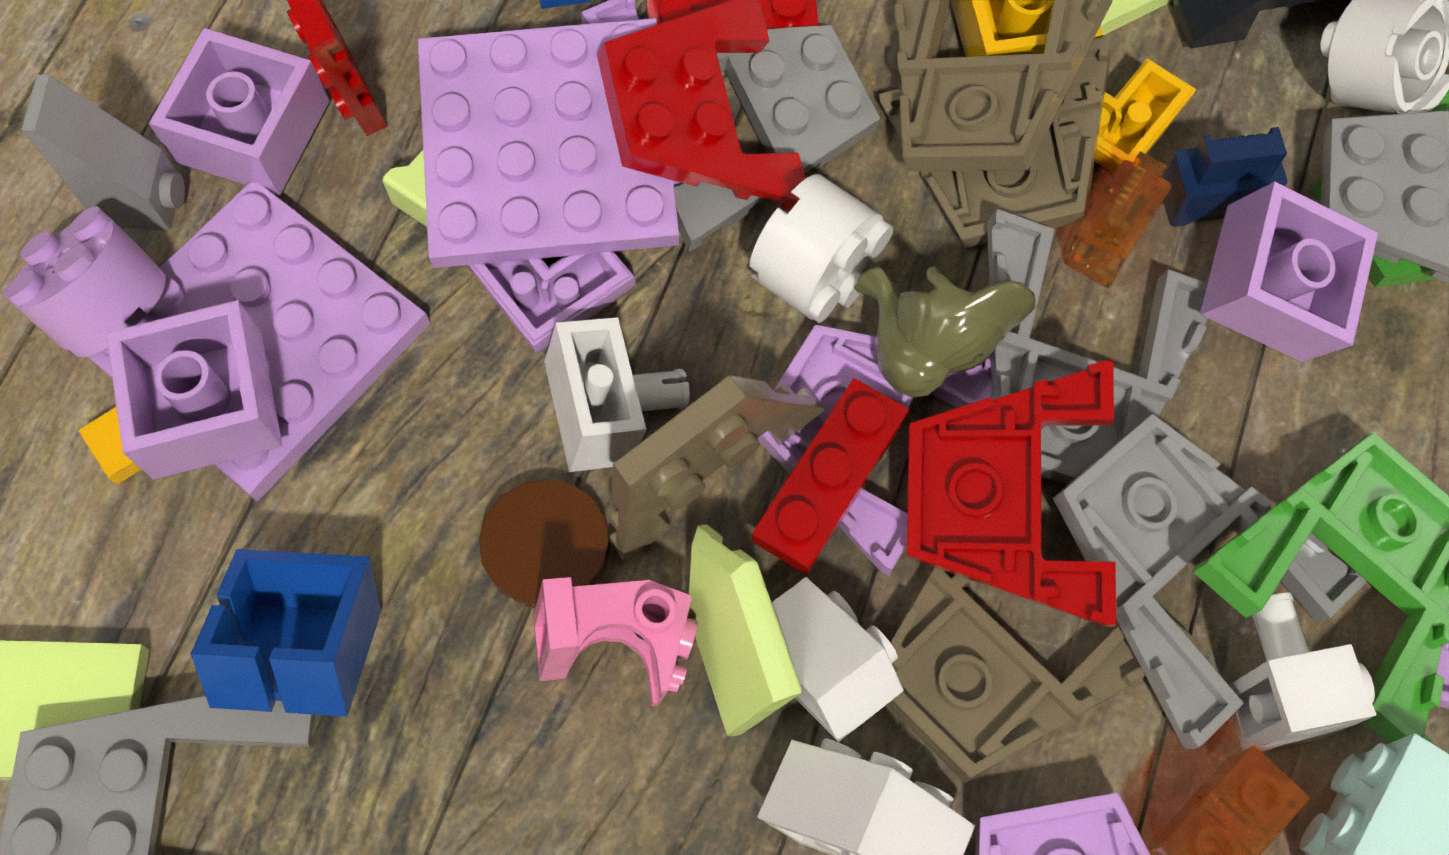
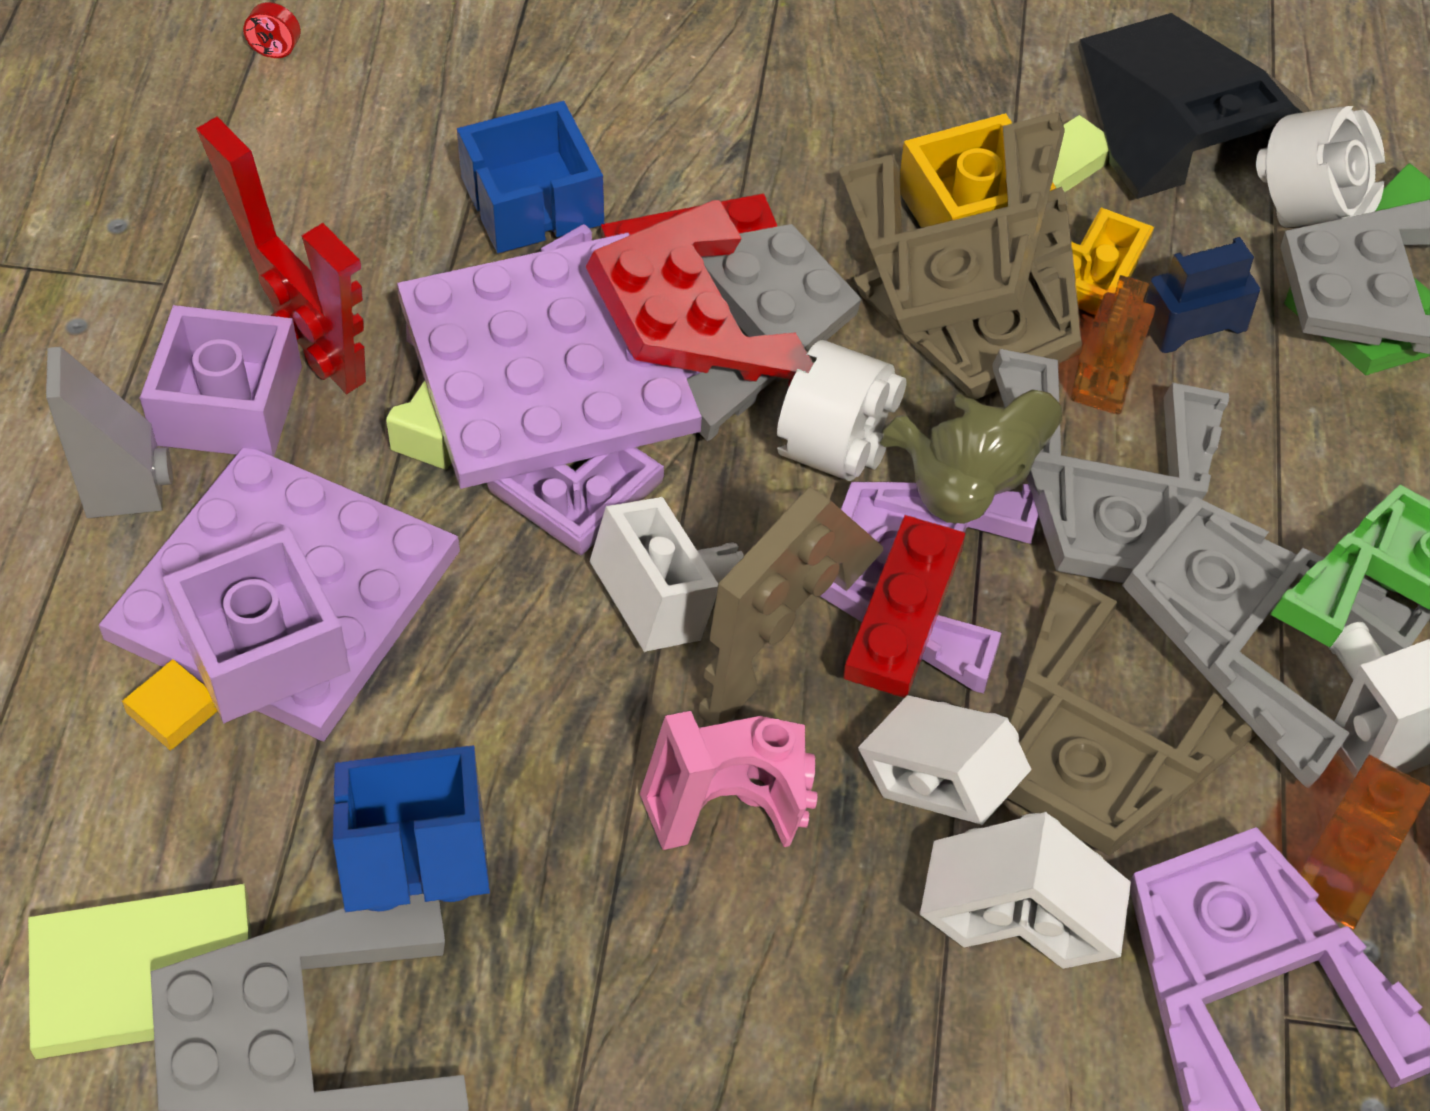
camera: 15 degrees left, 15 degrees down
(84, 282) = (107, 554): lavender brick -> none
(543, 534) = (621, 716): reddish brown tile -> none
(738, 634) = (862, 753): yellowish green tile -> none
(980, 493) = (1056, 592): red wing -> none
(1289, 273) = (1284, 364): lavender brick -> none

